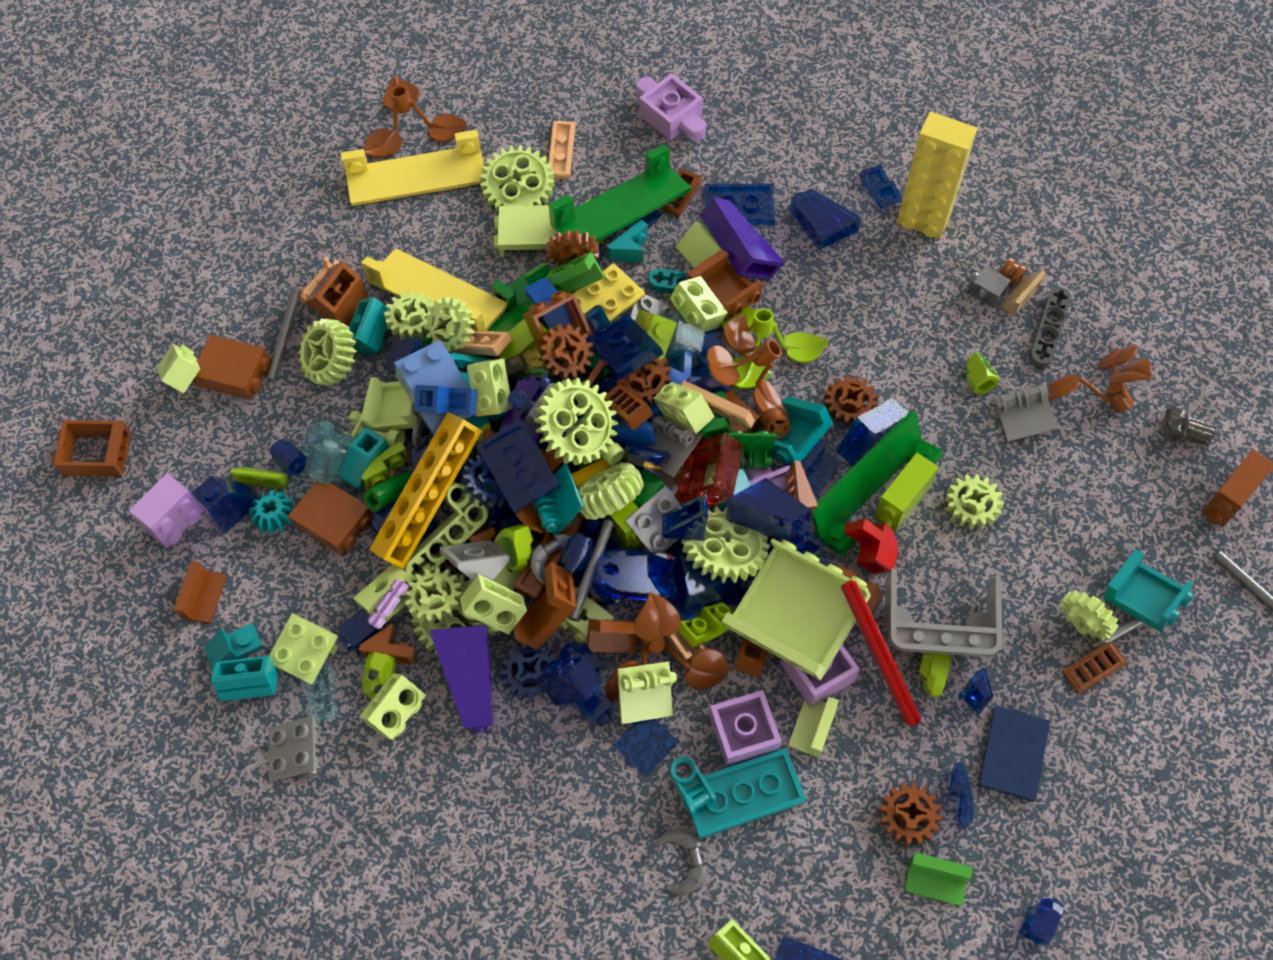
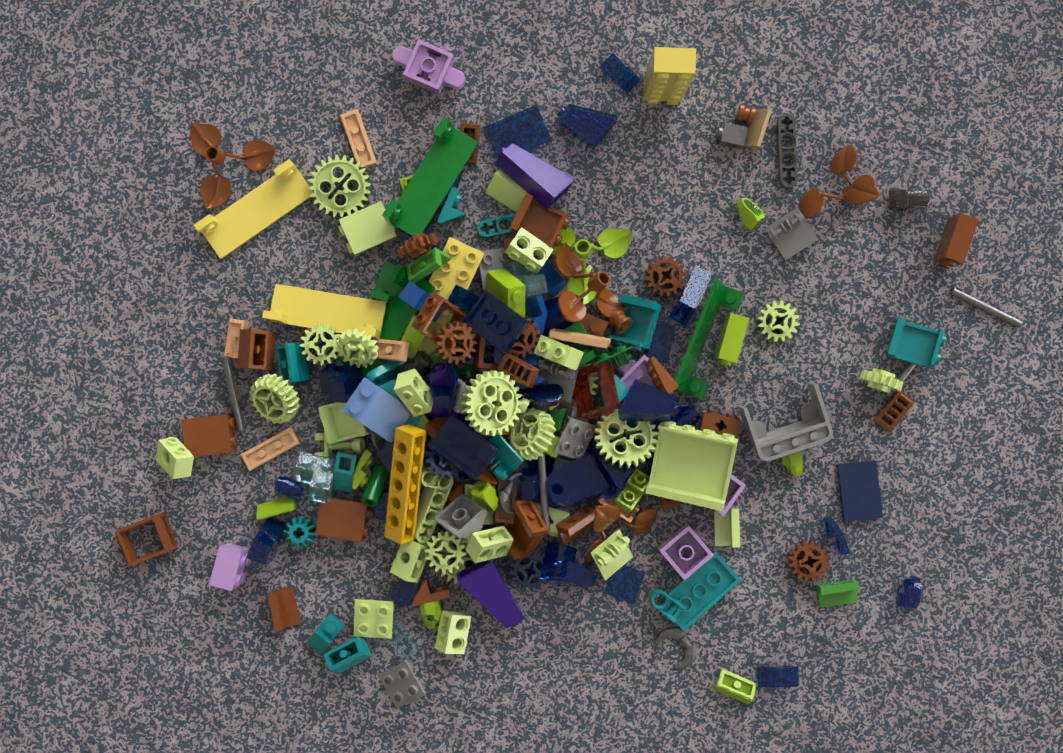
camera: 25 degrees left, 25 degrees up
(291, 411) = (270, 448): none -> light nougat tile
(388, 603) = (418, 571): lavender axle -> none
(445, 399) = (385, 421): blue slope -> none
(687, 520) = (595, 438): clear blue slope -> none
(878, 545) = (724, 385): red brick -> none
(881, 652) = (756, 471): red axle -> none
(978, 691) = (825, 463): clear blue slope -> none

